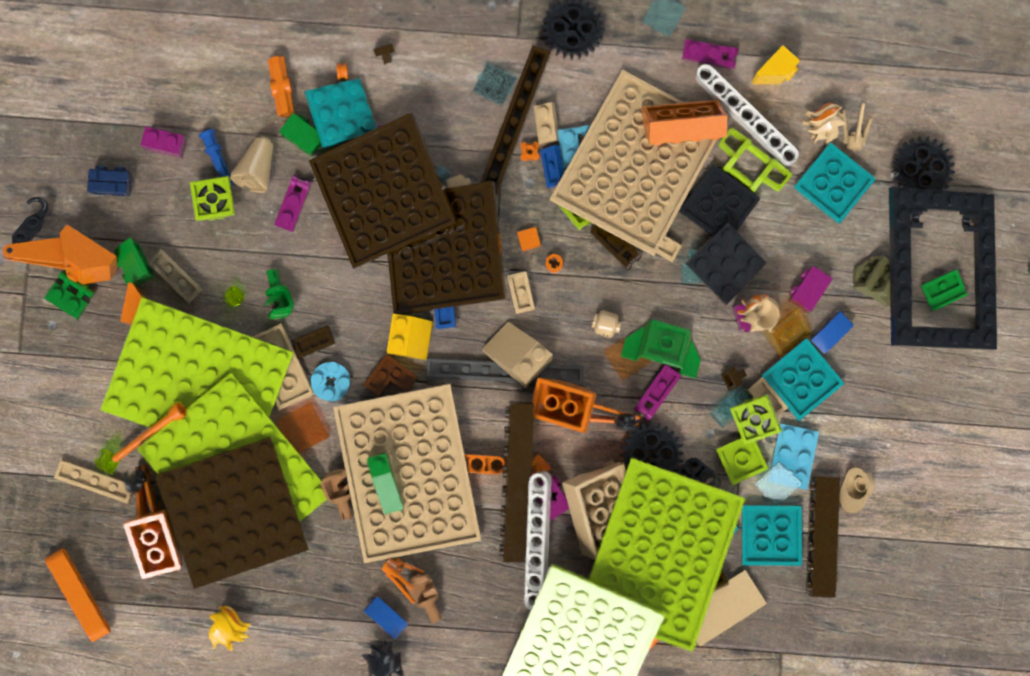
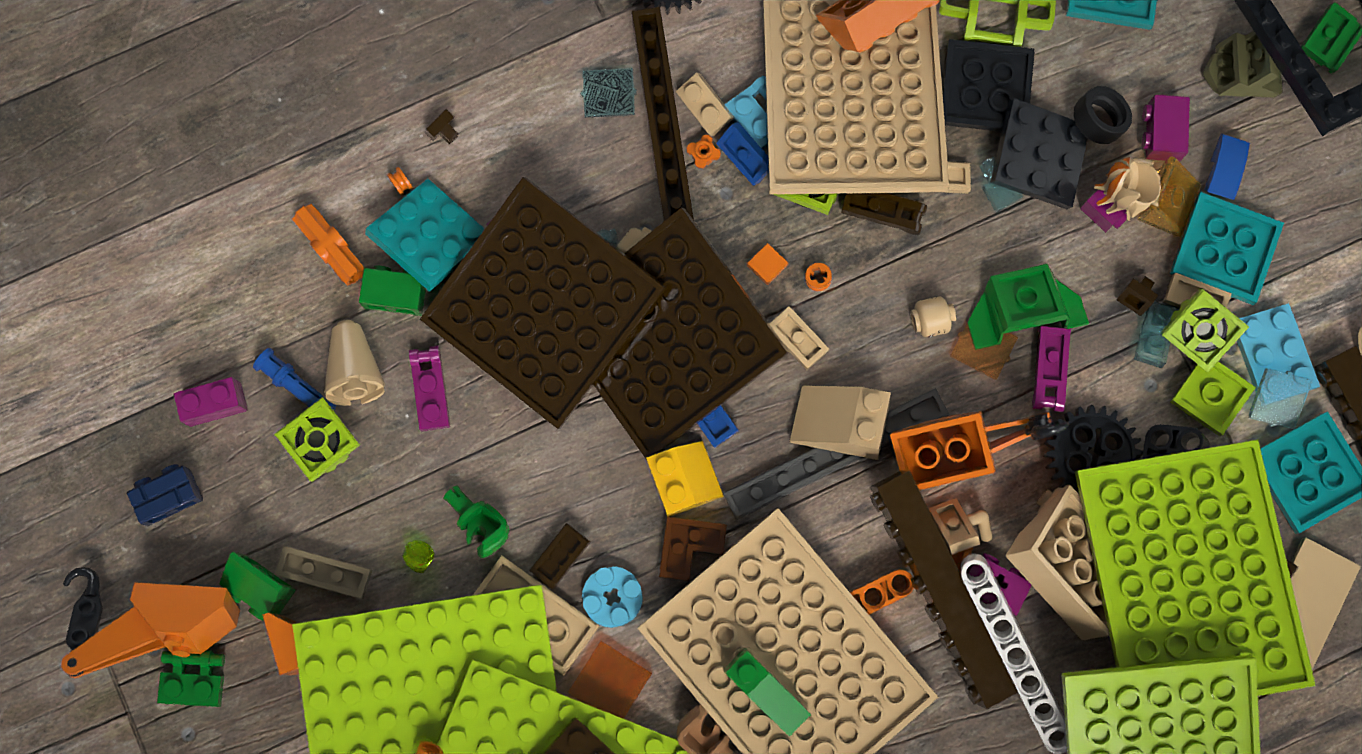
camera: 25 degrees left, 5 degrees down
(547, 450) = (958, 527): none -> tan plate
(787, 256) = (1113, 104): none -> black tyre

